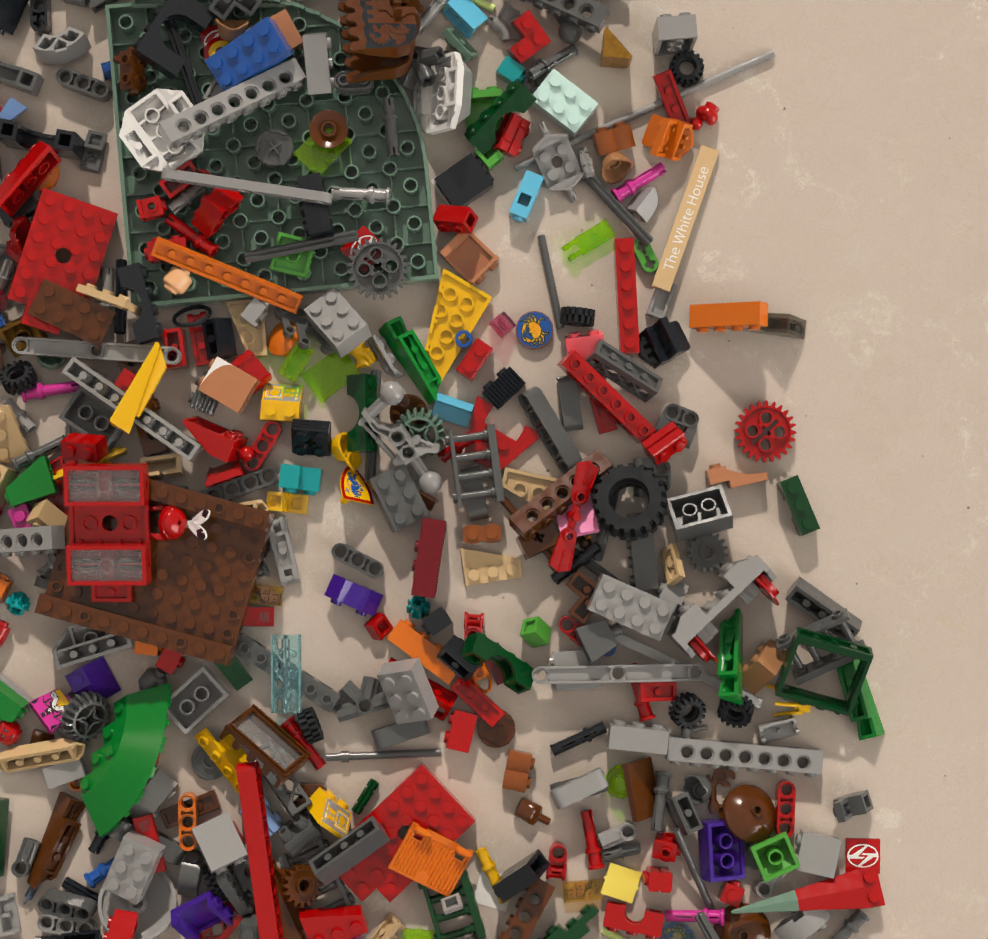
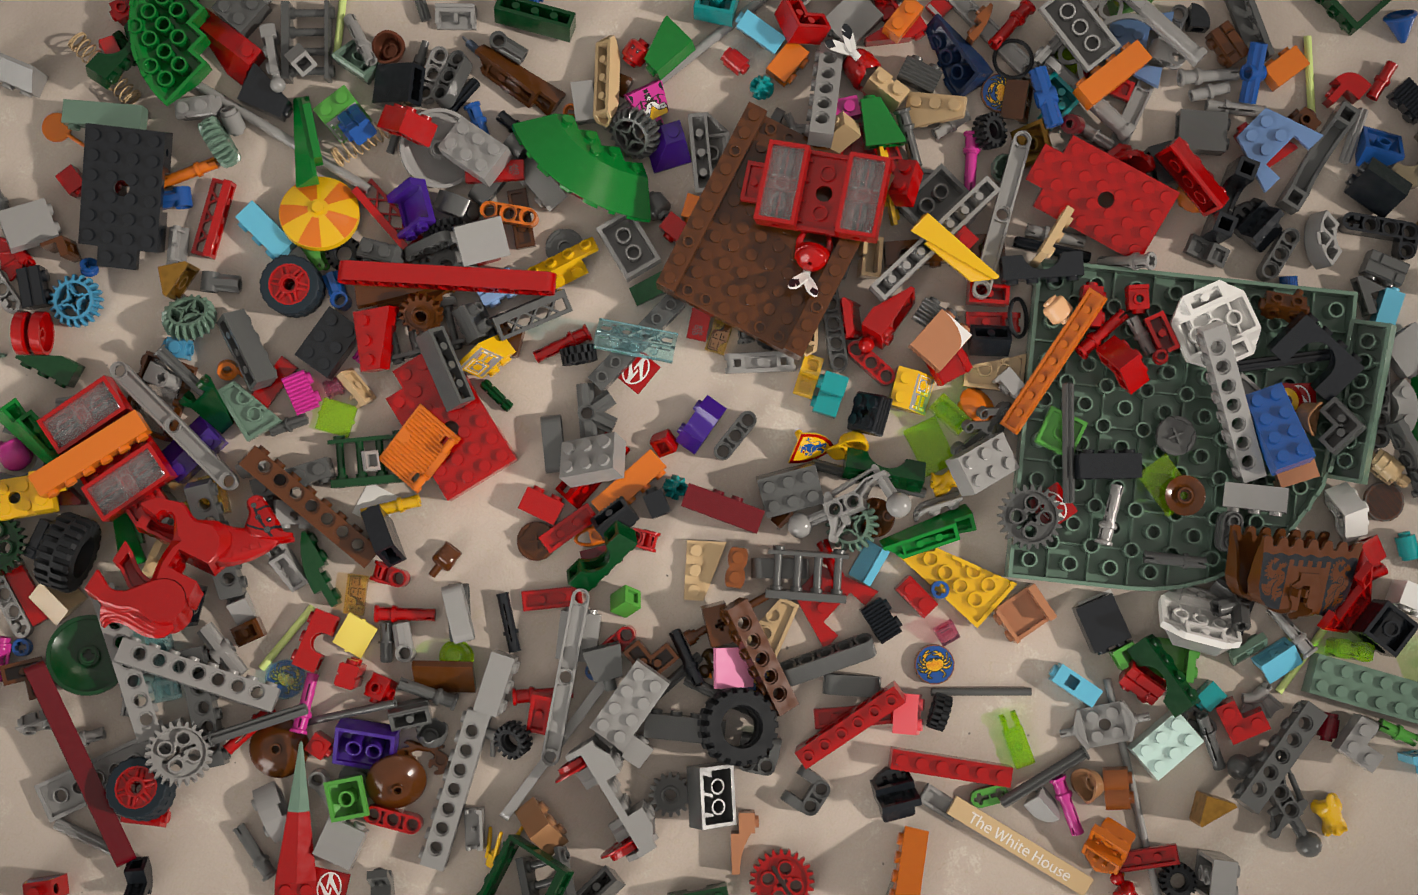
camera: 110 degrees right, 0 degrees up
(58, 109) = (1257, 223): none -> black piece
(71, 313) = (1045, 196): reddish brown plate -> none
(117, 217) = (1134, 261): none -> light grey pin
(247, 186) = (1141, 400): light grey beam -> none
(268, 743) = (569, 308): reddish brown window -> none
(317, 663) = (639, 373): none -> red sticker
(345, 756) = (540, 384): dark grey bar -> none
(455, 219) = (1065, 606): red brick -> none
(517, 771) = (490, 554): dark orange brick -> none
(547, 704) = (549, 598): none -> red tile
(564, 549) = (766, 682): red piece -> none
(586, 163) = (1098, 754): light grey axle -> none
(626, 370) = (875, 751): dark grey fence -> none
(664, 443) = (790, 774): red brick -> none
(672, 564) = (664, 756): tan plate -> none
(731, 658) = (556, 796): green wedge -> none
(733, 717) = (495, 787): black tyre -> none

